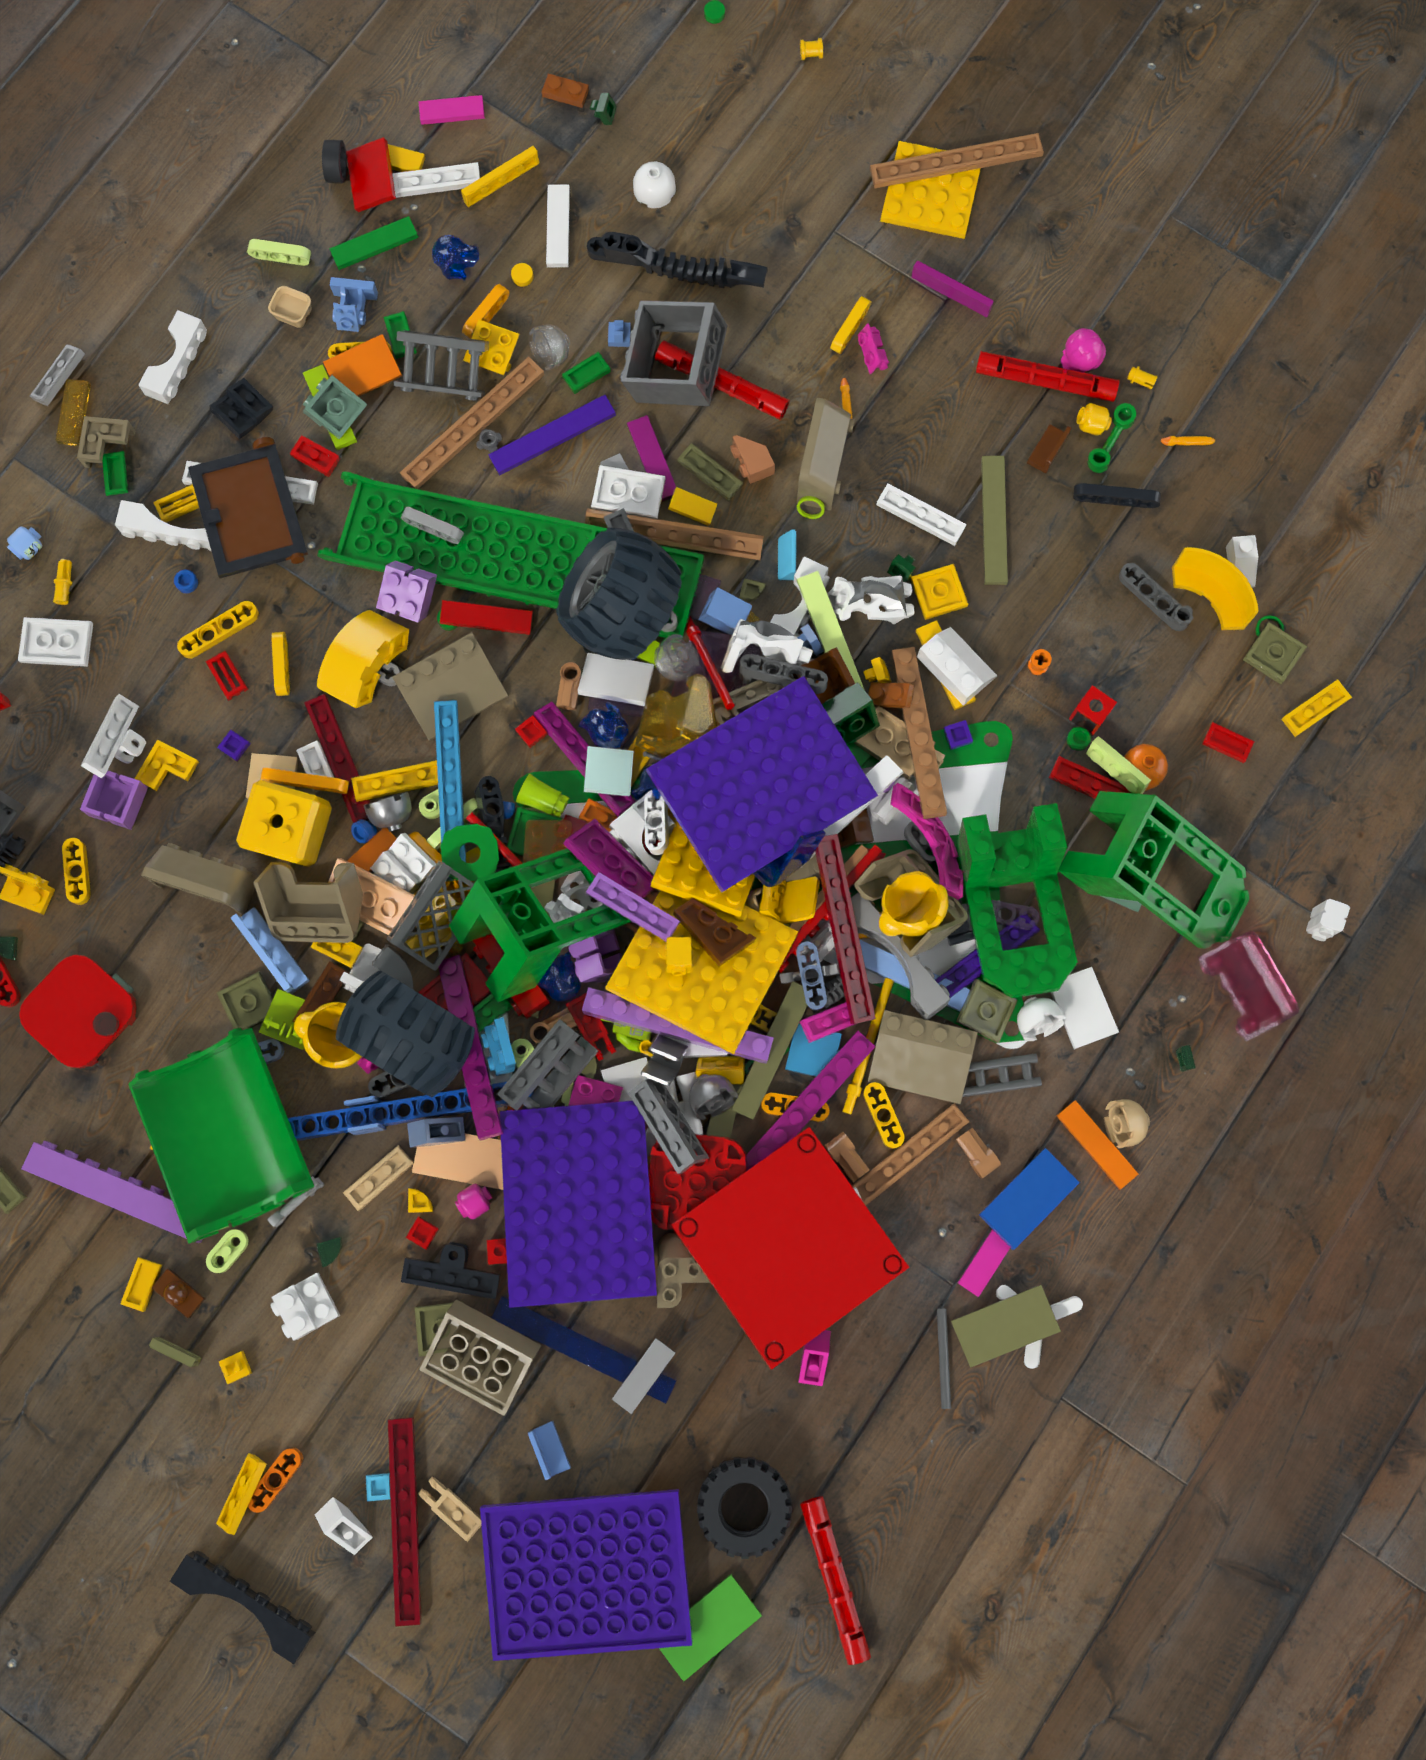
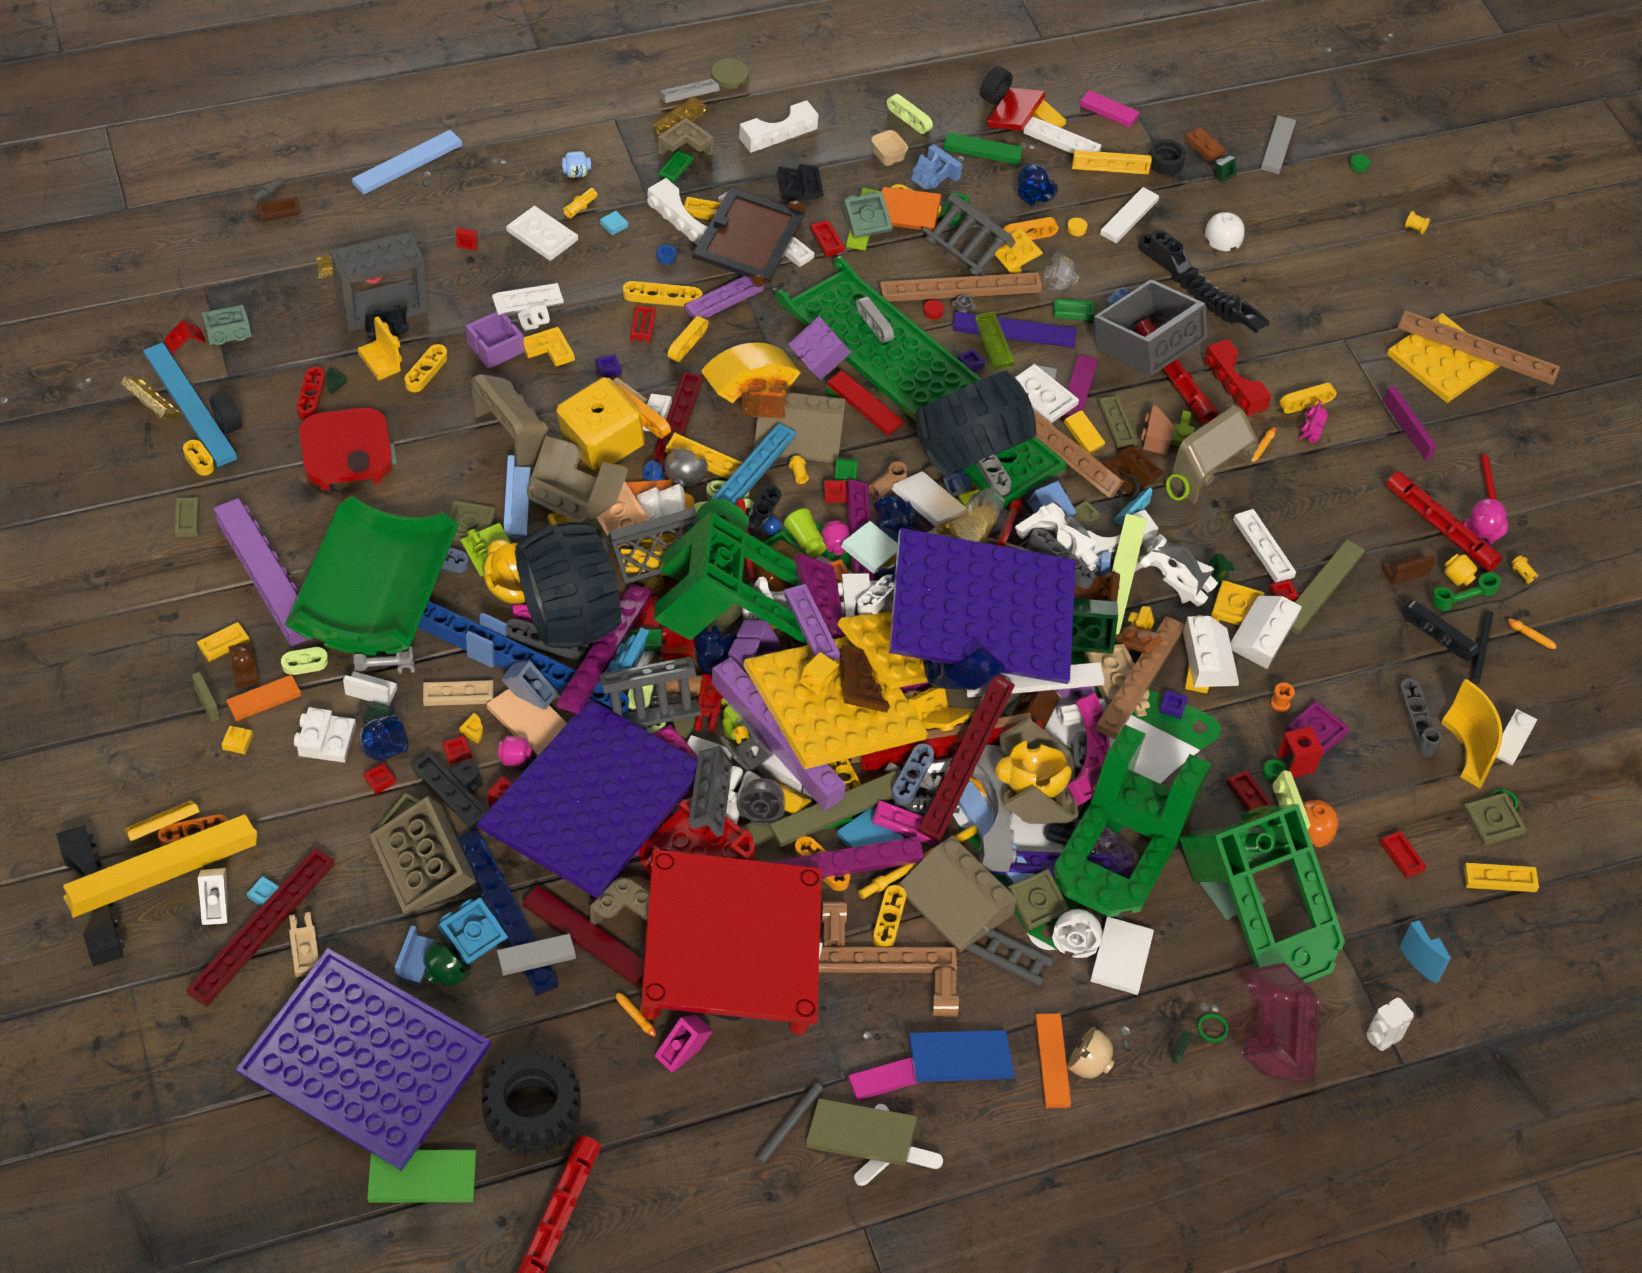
camera: 30 degrees right, 25 degrees down
(77, 324) = (730, 73): none -> olive tile
(111, 581) = (614, 223): none -> medium azure tile
(222, 1311) = (263, 698): none -> orange tile
(274, 598) = (722, 298): none -> medium lavender plate
(280, 1544) = (159, 865): none -> yellow tile
(303, 1232) = (369, 688): none -> white panel
(359, 1276) = (383, 738): none -> clear blue hair
(382, 1309) = (379, 778): none -> red tile
(404, 685) = (765, 398): none -> clear orange bracket
(466, 465) = (933, 309): none -> red tile
(483, 731) = (797, 464): none -> yellow pin
(523, 701) = (845, 469): none -> green tile
(539, 499) = (972, 360): none -> dark purple tile
(544, 117) = (1169, 147): none -> black tyre
(545, 462) = (994, 340): none -> clear neon green tile
(569, 781) = (834, 535): none -> dark pink head
(574, 1393) = (471, 930): none -> dark azure plate
(579, 1440) = (443, 965): none -> dark green cylinder
(629, 42) = (1278, 144): none -> light grey tile
(662, 1320) = (585, 935): none -> dark red tile
(751, 1357) = (629, 1007): none -> light orange piece
(758, 514) = (1136, 463): none -> reddish brown slope
(772, 440) = (1182, 430): none -> lime plate
(773, 549) = (1136, 491): none -> pearl dark grey piece
(800, 359) = (1248, 394): none -> red arch
(966, 550) = (1284, 589): none -> red tile
(982, 605) = (1265, 629): none -> white slope
(1054, 302) = (1489, 483): none -> red bar
(1084, 668) = (1325, 724): none -> magenta tile
(1158, 485) = (1483, 642): none -> black bar
(1202, 1010) = (1215, 1016): none -> green piece
(1308, 832) = (1424, 954): none -> dark azure slope

